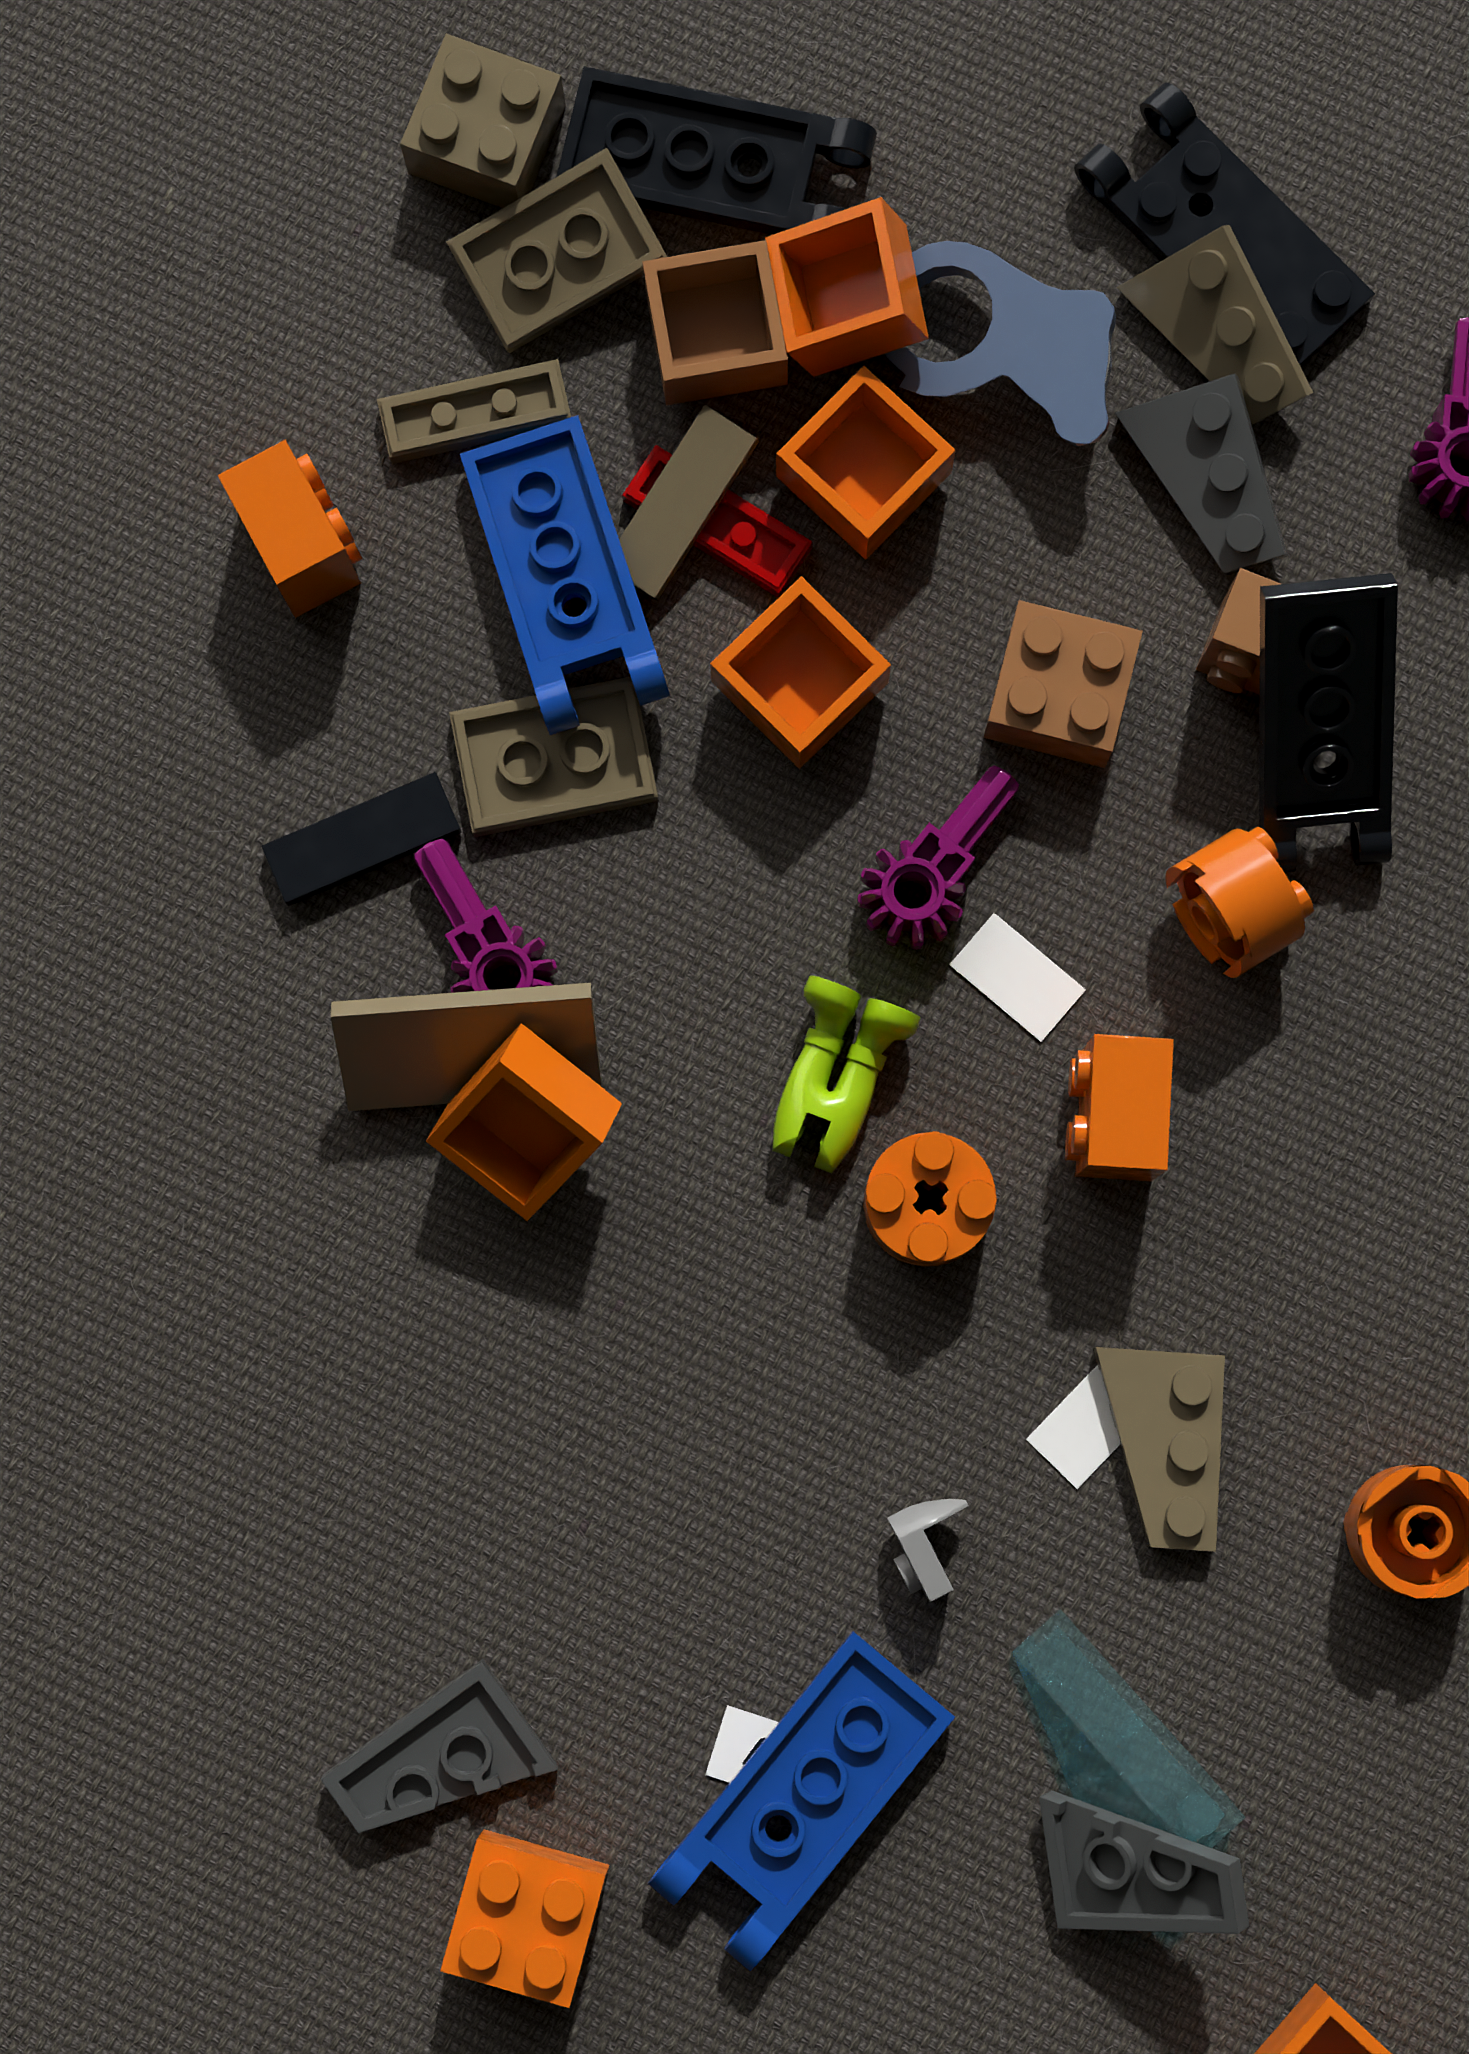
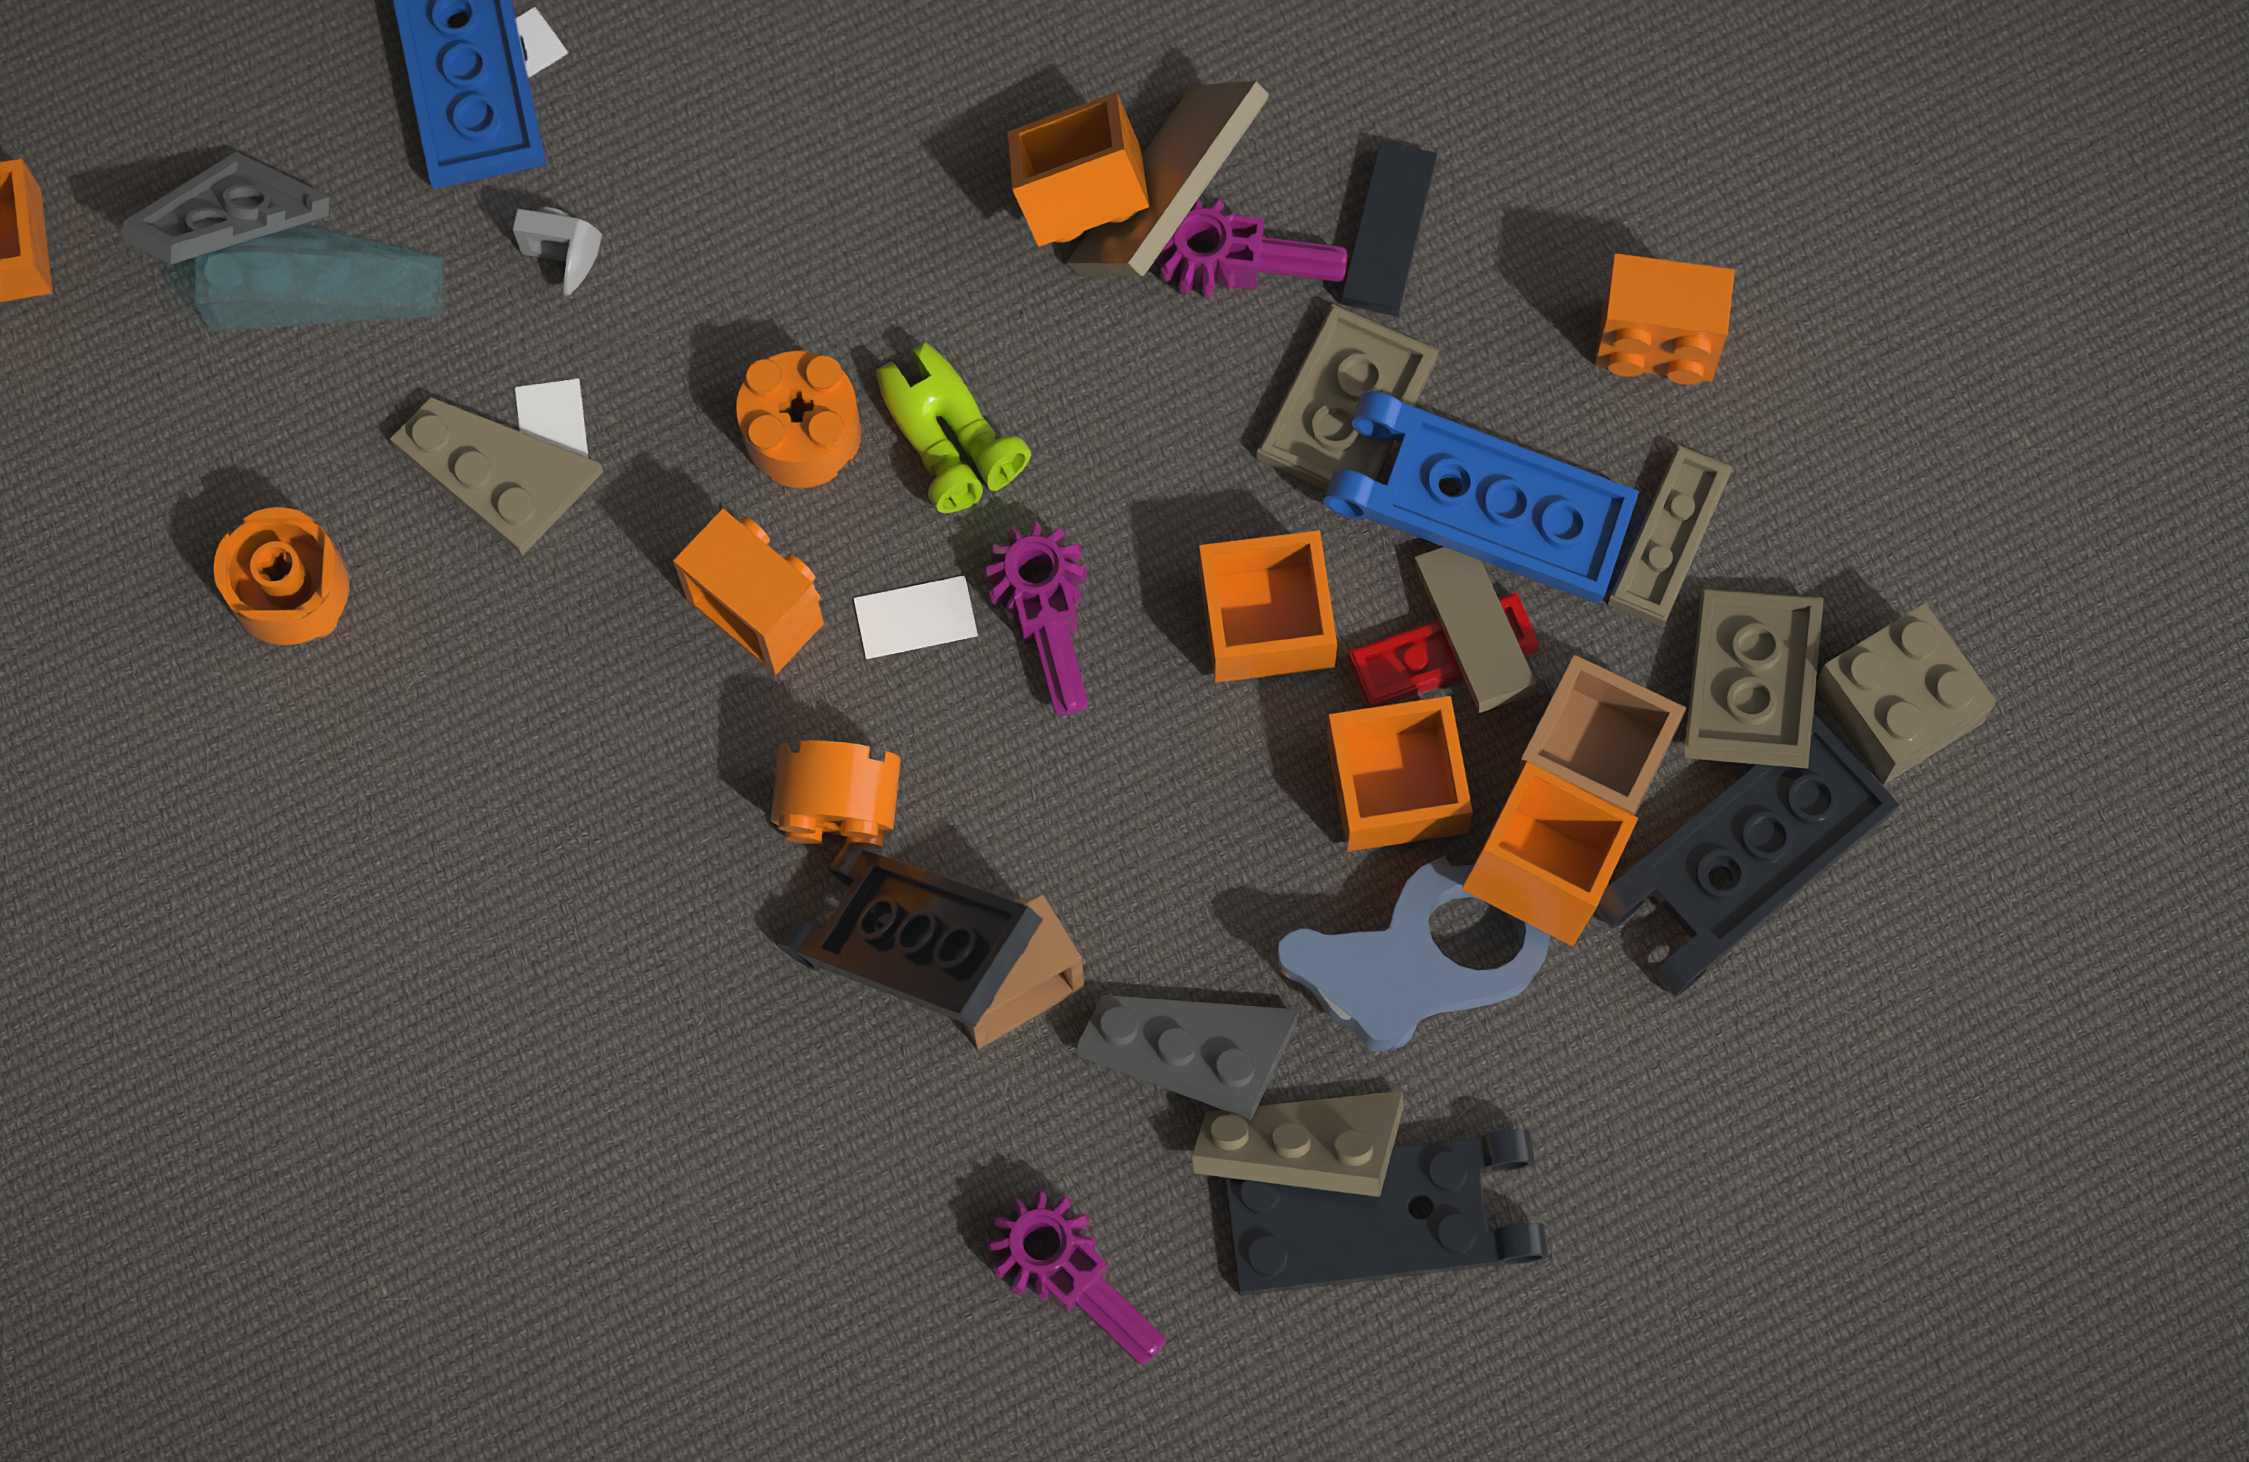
camera: 125 degrees right, 10 degrees down
(1063, 684) = (1108, 798): medium nougat piece -> none

